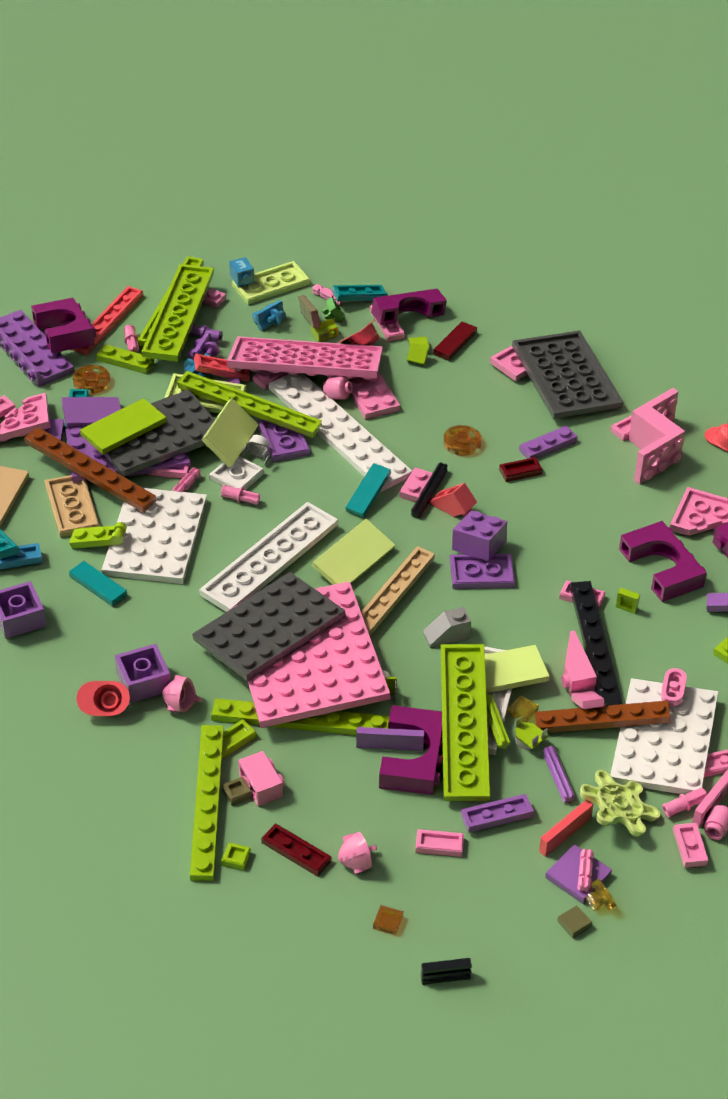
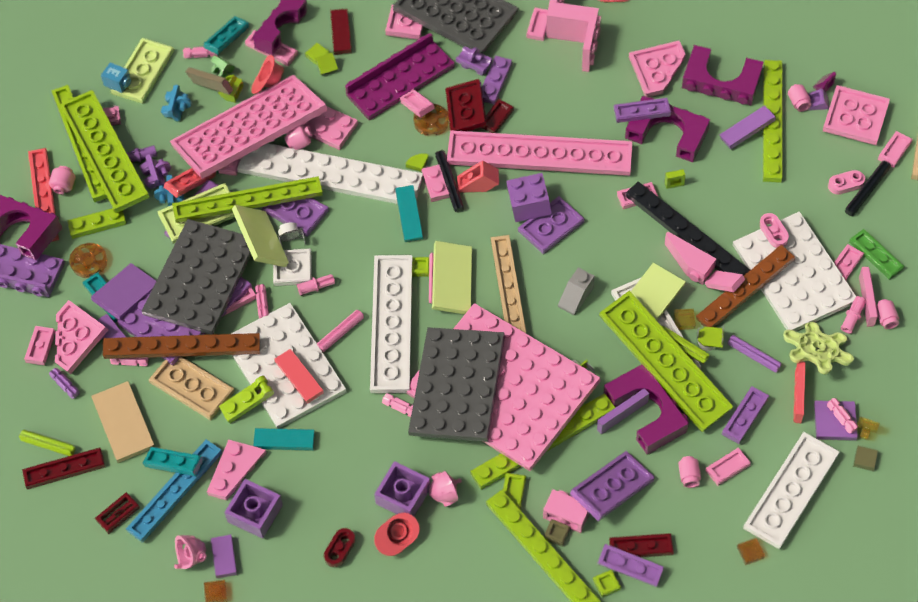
camera: 35 degrees left, 15 degrees up
(44, 574) = (233, 467): none -> bright pink wing
(47, 461) = (130, 361): none -> bright pink axle
(53, 682) = (338, 548): none -> dark red plate
(123, 426) = (175, 290): lime tile -> none
(129, 315) = (62, 180): none -> bright pink head
(131, 338) = (84, 201): bright pink axle -> none
(153, 544) = (299, 376): none -> coral tile
(209, 611) = (397, 404): none -> bright pink axle
(224, 537) = (340, 330): none -> bright pink axle
(268, 853) = (630, 565): none -> medium lavender plate
(317, 784) = (612, 485): none -> medium lavender tile
(336, 533) = (420, 266): none -> lime tile
(356, 853) = (689, 518): bright pink helmet -> none
(398, 821) = (689, 471): none -> bright pink brick
(418, 461) = (417, 162): none -> lime tile
(446, 971) = (825, 559): black tile -> none
(461, 420) = (417, 103): none -> bright pink tile
(468, 394) = (398, 75): none -> magenta bracket
(475, 897) = (791, 490): none -> white plate
(499, 445) = (466, 106): none -> dark red plate
(531, 515) = (540, 152): none -> bright pink plate
(542, 417) = (473, 59): none -> medium lavender hips
(648, 529) = (642, 110): none -> medium lavender tile
(690, 845) = (884, 345): bright pink plate -> none

